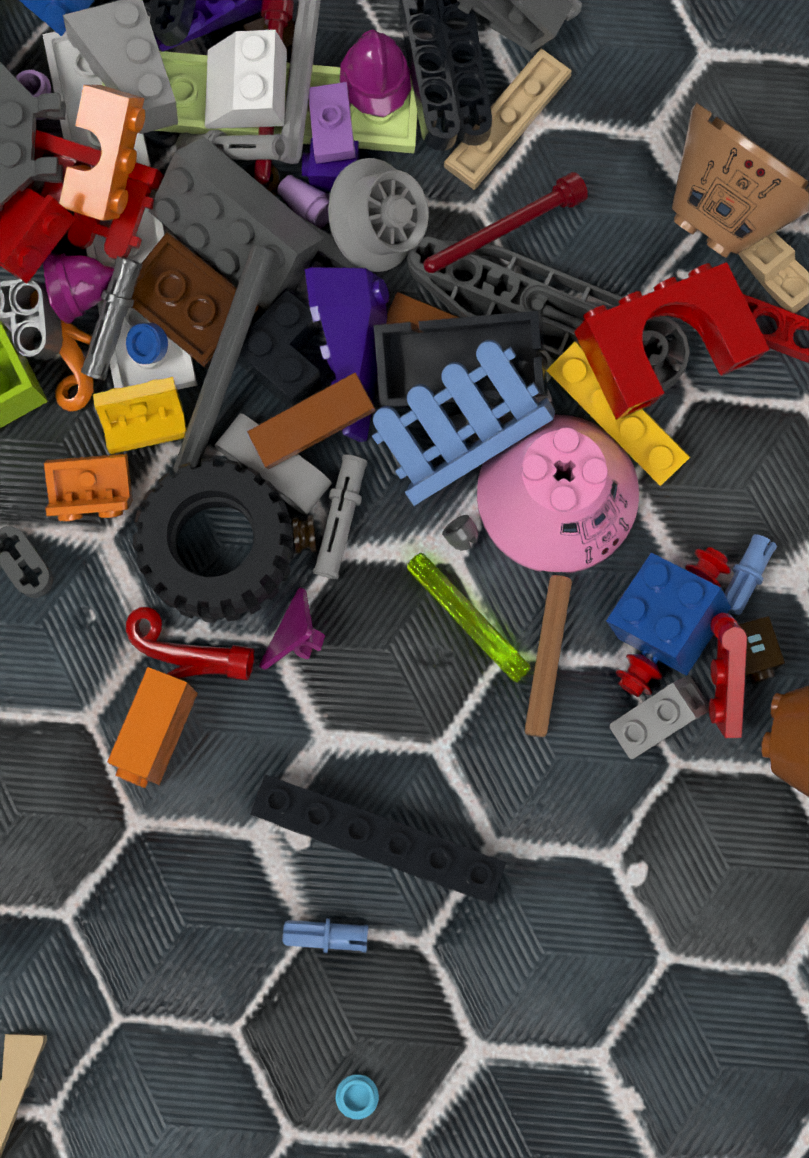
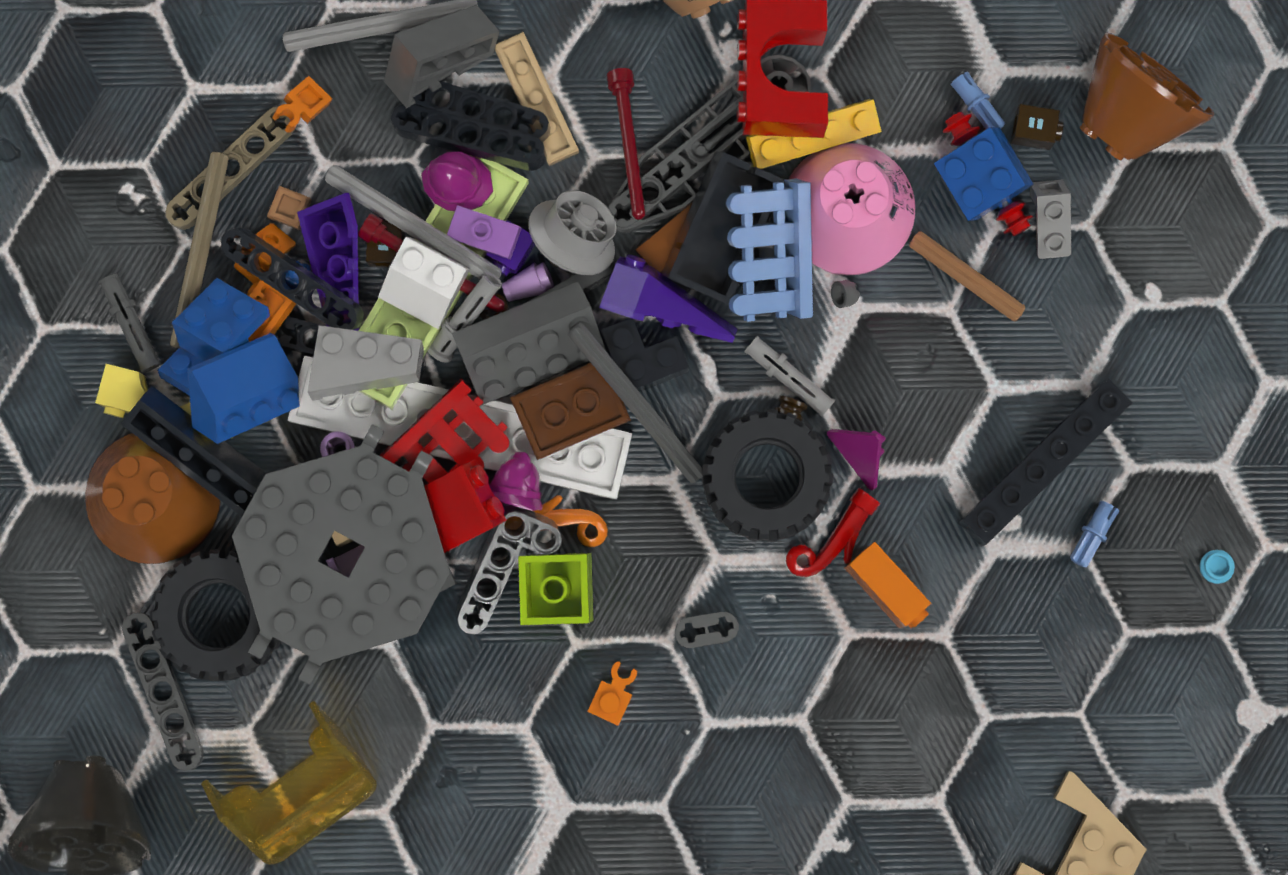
camera: 65 degrees left, 5 degrees up
(88, 486) = (675, 552): orange bracket -> none
(110, 321) = (548, 460): dark grey pin -> none
(115, 121) = (414, 392): arch -> none
(141, 415) = (641, 486): yellow bracket -> none
(146, 343) = (589, 454): blue tile -> none
(294, 479) = (724, 405): light grey beam -> none
(311, 421) = (715, 359): dark orange tile -> none
(468, 617) = (910, 319): clear neon green axle -> none
(728, 675) = (1050, 154): red plate -> none

